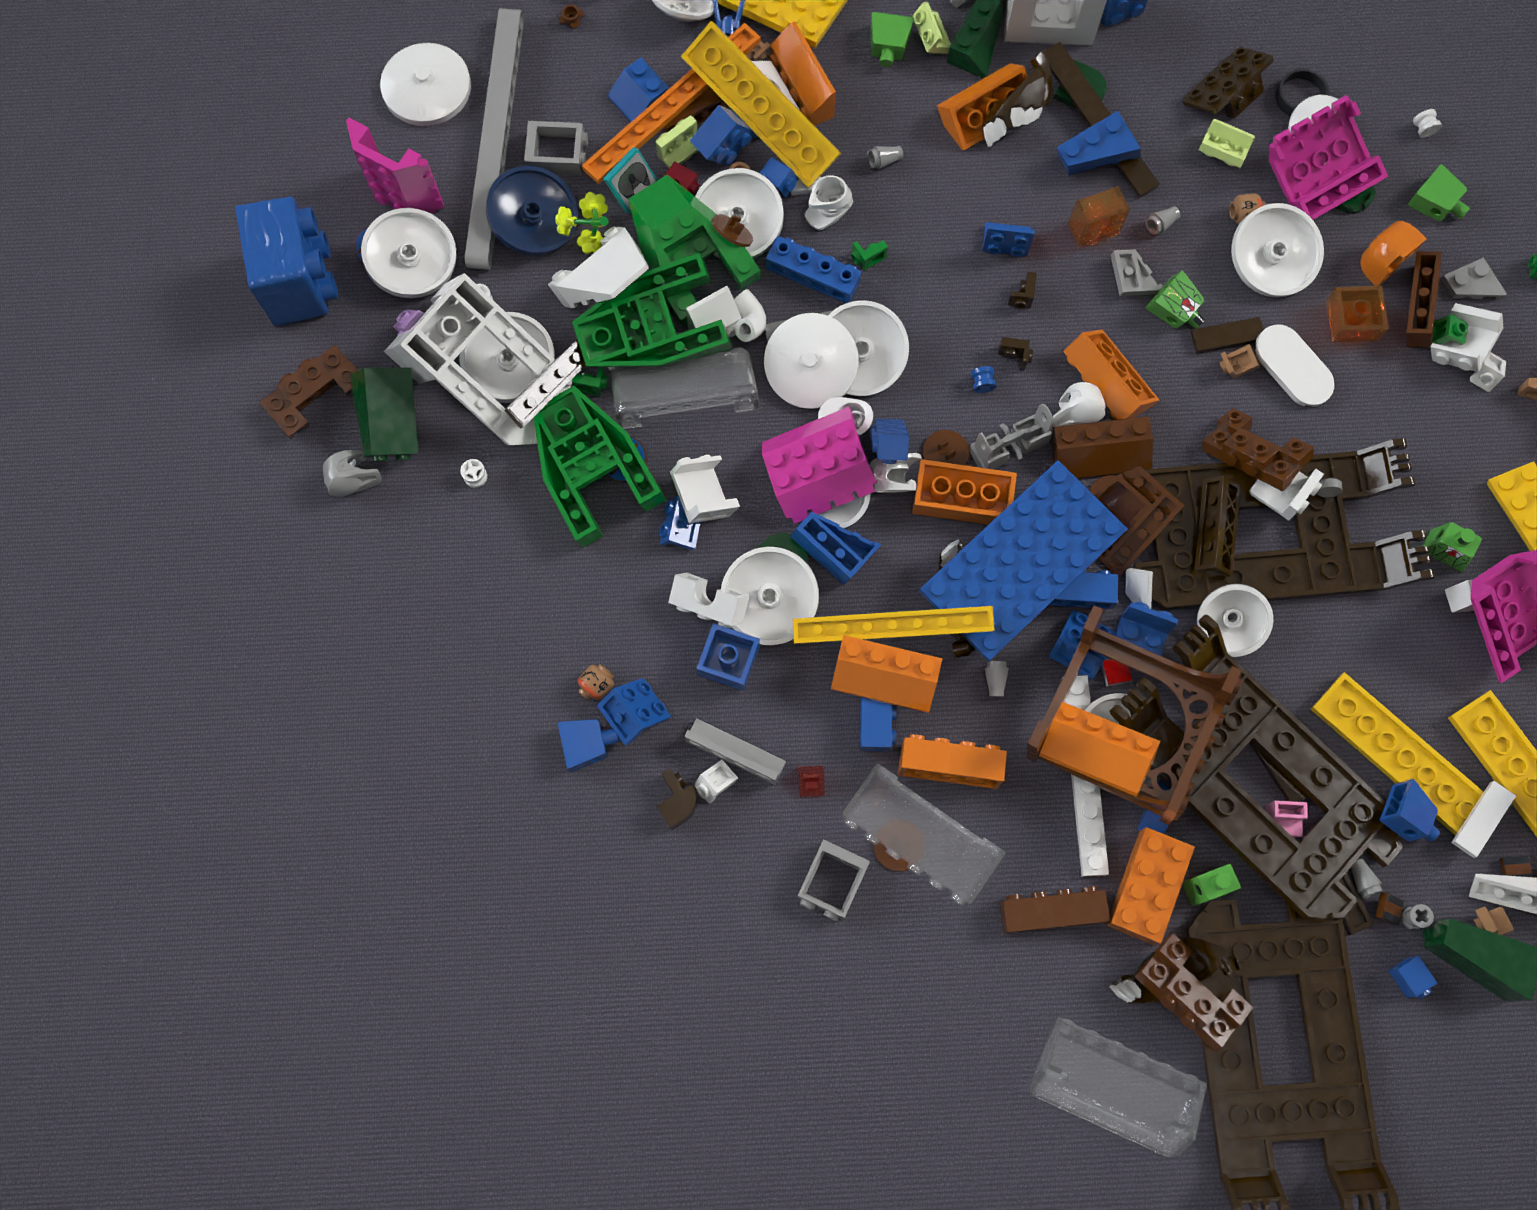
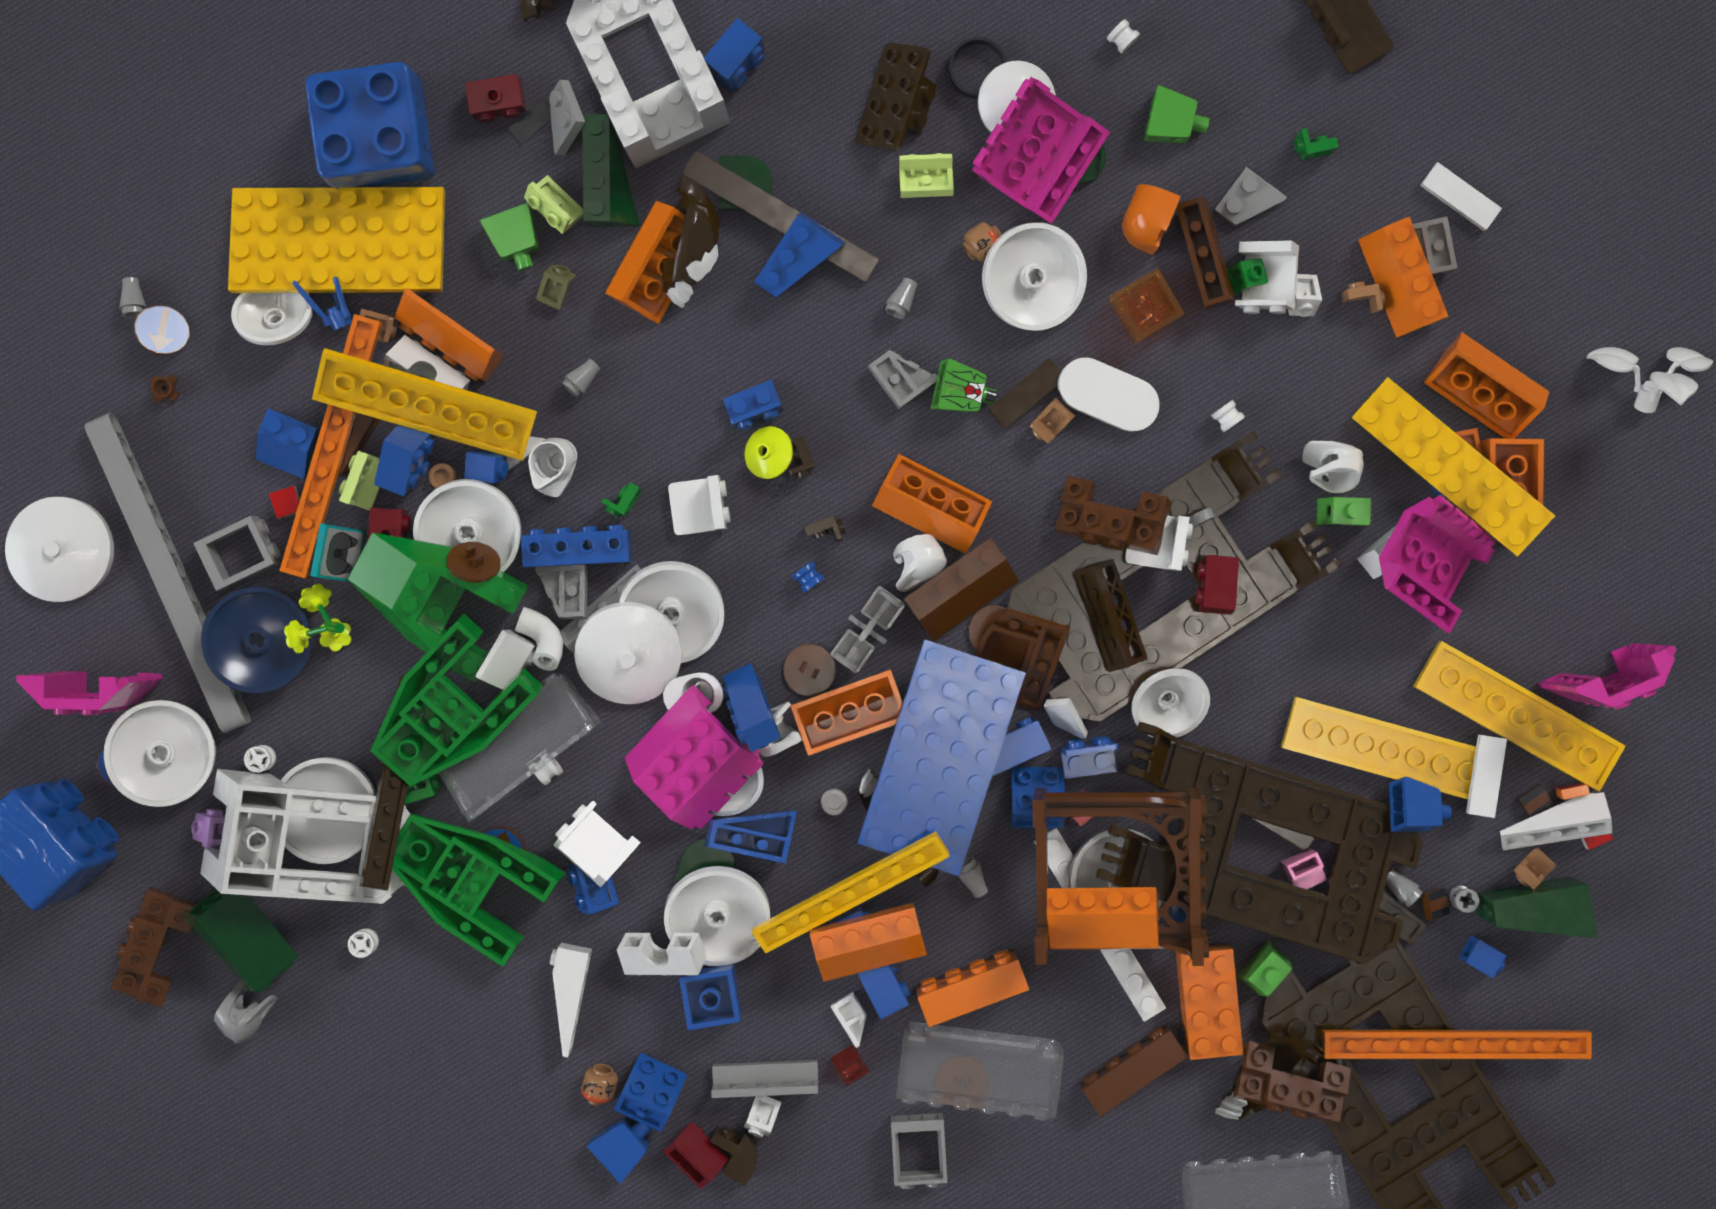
camera: 30 degrees left, 15 degrees up
(603, 273) = (375, 675): white wedge -> none
(609, 130) = (285, 502): none -> red tile
(621, 585) = (569, 980): none -> white slope
(646, 772) = (696, 1154): none -> dark red brick
(697, 418) = (549, 771): none -> white wheel
(788, 294) = (566, 588): none -> light grey wing
(834, 740) = (851, 1016): none -> white tile
(900, 85) = (555, 286): none -> olive bracket
(912, 561) = (834, 801): none -> light grey tile
(926, 287) = (699, 505): none -> white bracket
(1001, 276) = (778, 453): none -> neon yellow dish
(1098, 216) = (836, 337): clear orange brick -> none
(1320, 544) = (1218, 584): none -> dark red brick
(1359, 1039) = (1457, 1044): none -> orange plate
(1385, 427) = (1228, 416): none -> white wheel
(1459, 502) = (1337, 461): none -> white helmet

